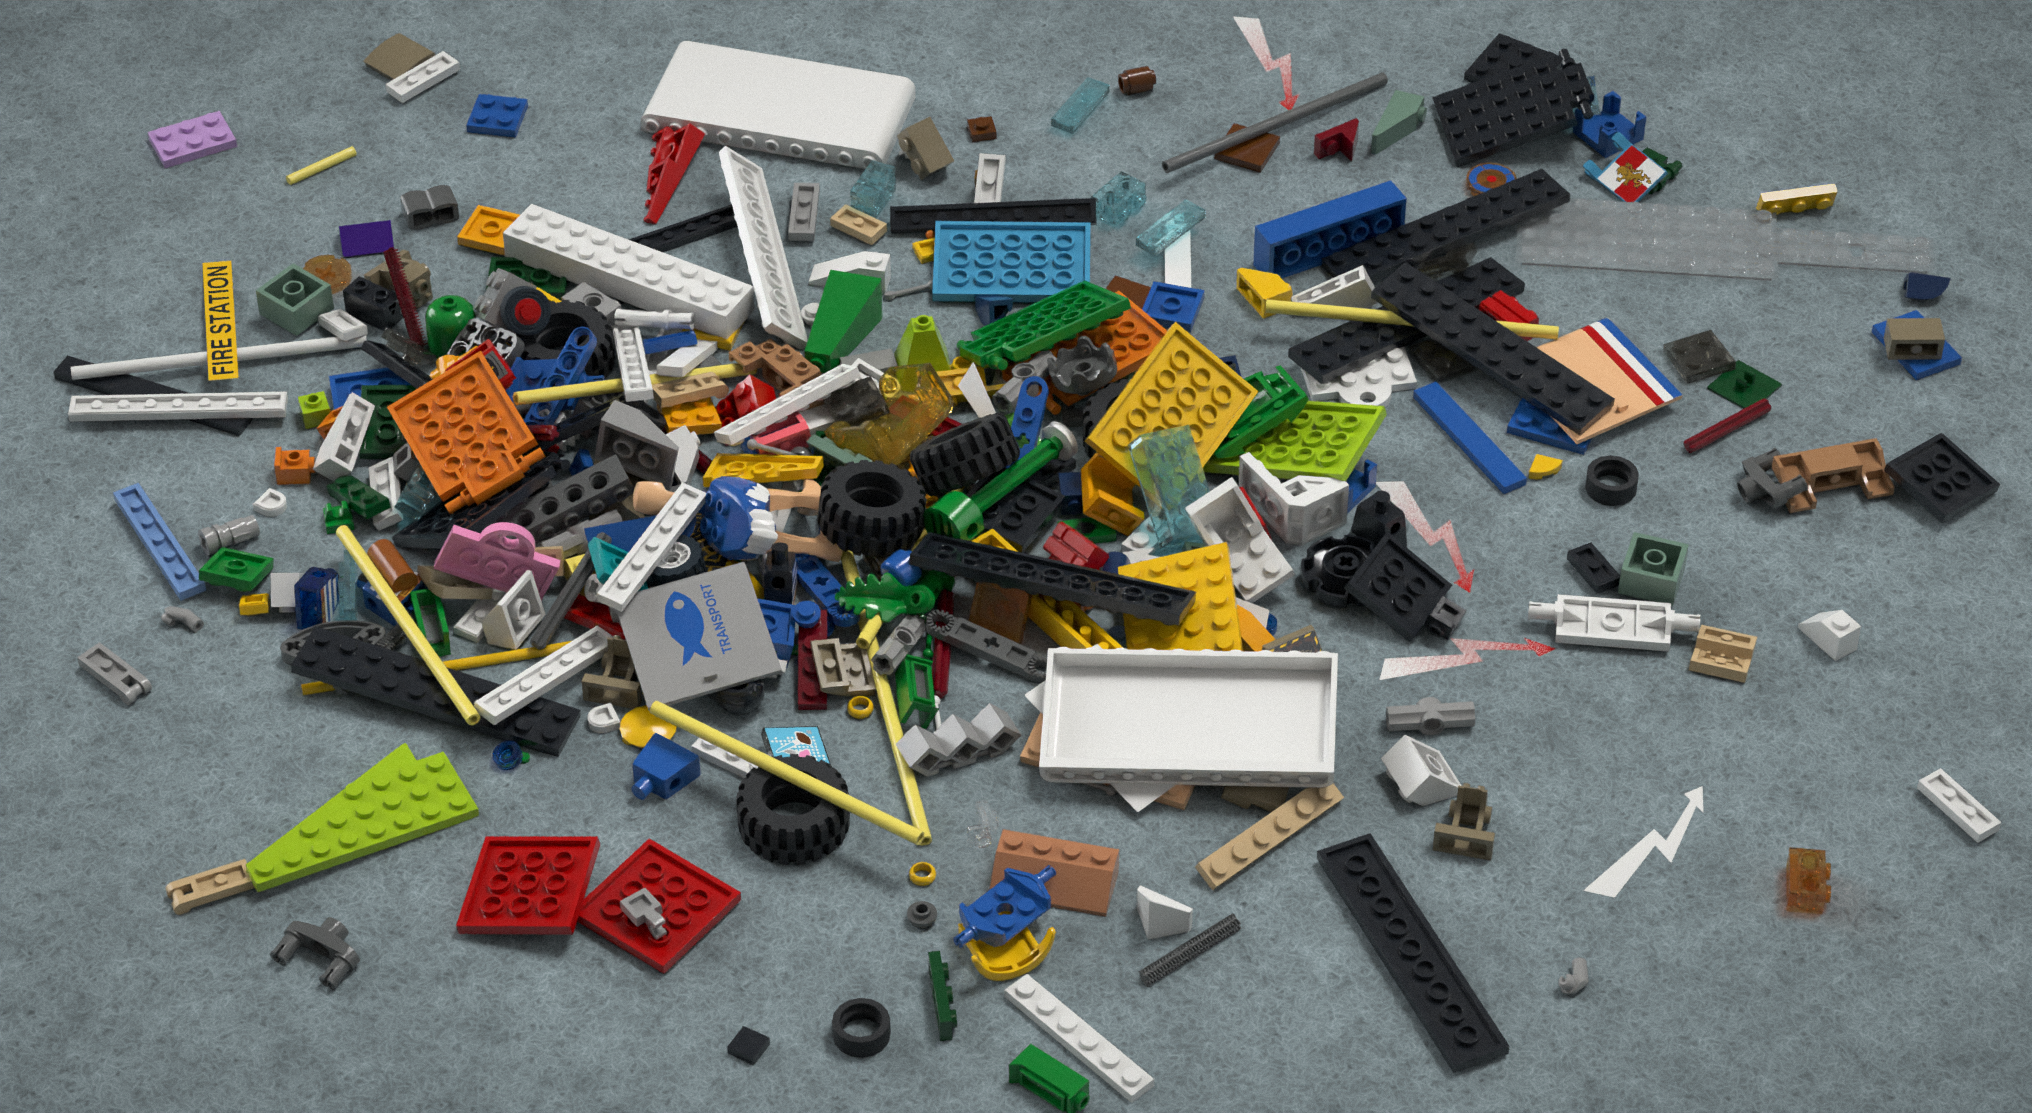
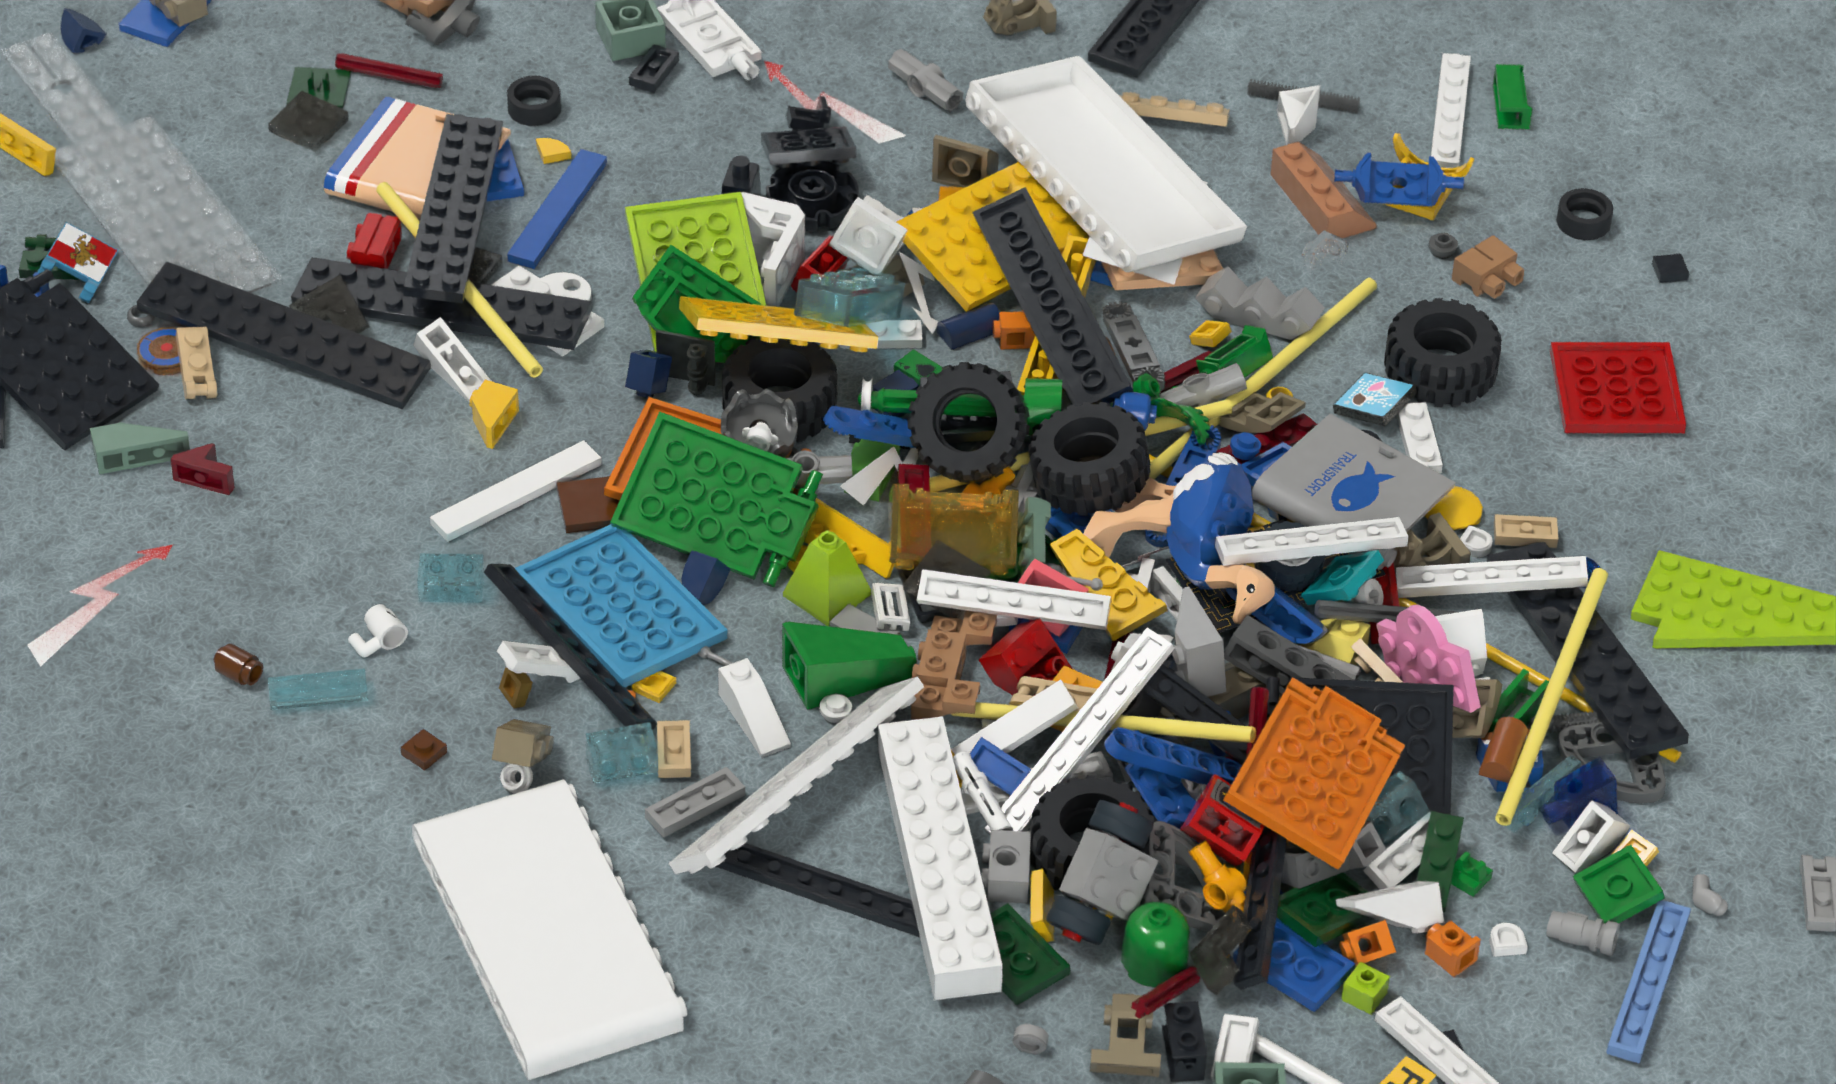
camera: 130 degrees left, 0 degrees up
(456, 248) = (1030, 1039): none -> light grey tile
(486, 229) = (972, 1032): light orange plate -> none
(528, 885) = (1696, 460): red plate -> none
(578, 747) = (1525, 530): none -> tan plate
(644, 908) = (1642, 370): light grey plate -> none
(663, 768) = (1488, 462): blue torso -> none
(670, 161) = (712, 962): red wedge -> none
(788, 773) = (1437, 343): light yellow piece -> none
(865, 914) = (1488, 267): none -> medium nougat hips
(922, 881) = (1402, 275): yellow piece -> none
(941, 995) = (1507, 188): dark green plate -> none
(963, 704) = (1210, 333): none -> yellow tile
(1067, 355) = (759, 436): none -> white plate
(1074, 548) = (973, 341): red brick -> none
(1104, 152) = (386, 629): none -> white piece
(1109, 496) = (903, 349): light orange panel -> none
(1170, 227) = (466, 509): clear light blue plate -> none
(1173, 304) = (583, 450): blue plate -> none
(1251, 153) = (269, 539): reddish brown tile -> none
(1274, 122) = (219, 525): dark grey piece -> none
(1304, 237) = (373, 393): blue brick -> none
(1404, 500) = (704, 181): sticker -> none
(1420, 772) = (994, 53): white slope -> none
(1455, 180) = (196, 362): none -> tan plate

